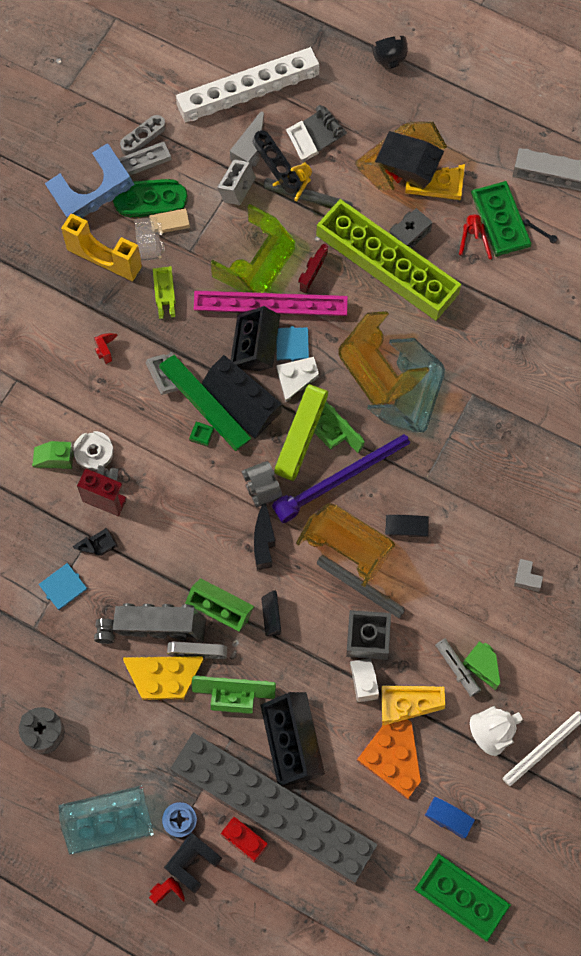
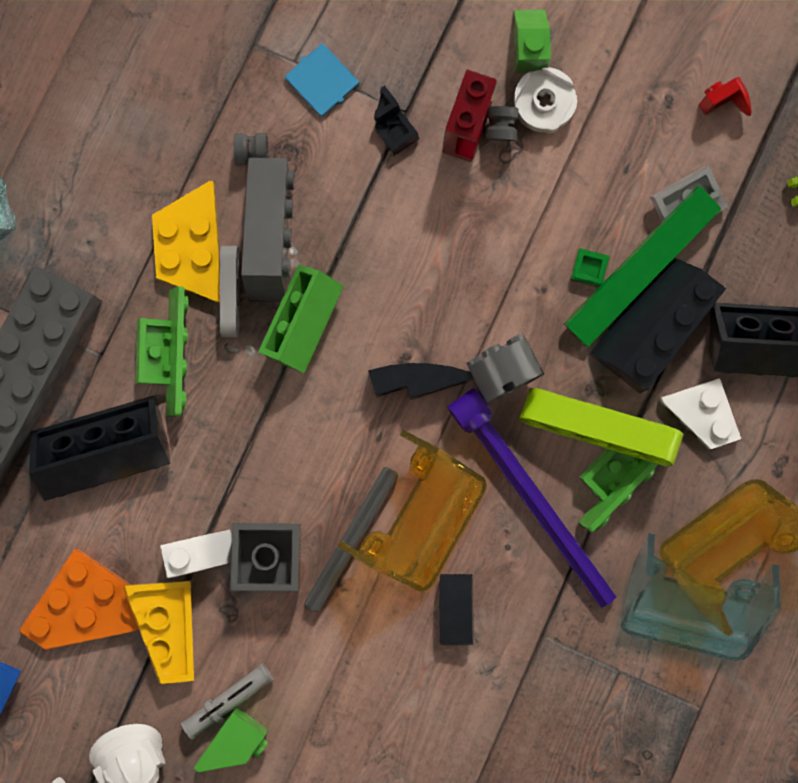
camera: 85 degrees right, 15 degrees up
(31, 724) = (87, 54): dark grey brick -> none
(271, 614) = (295, 401): black slope -> none
(292, 344) = (762, 402): dark azure piece -> none

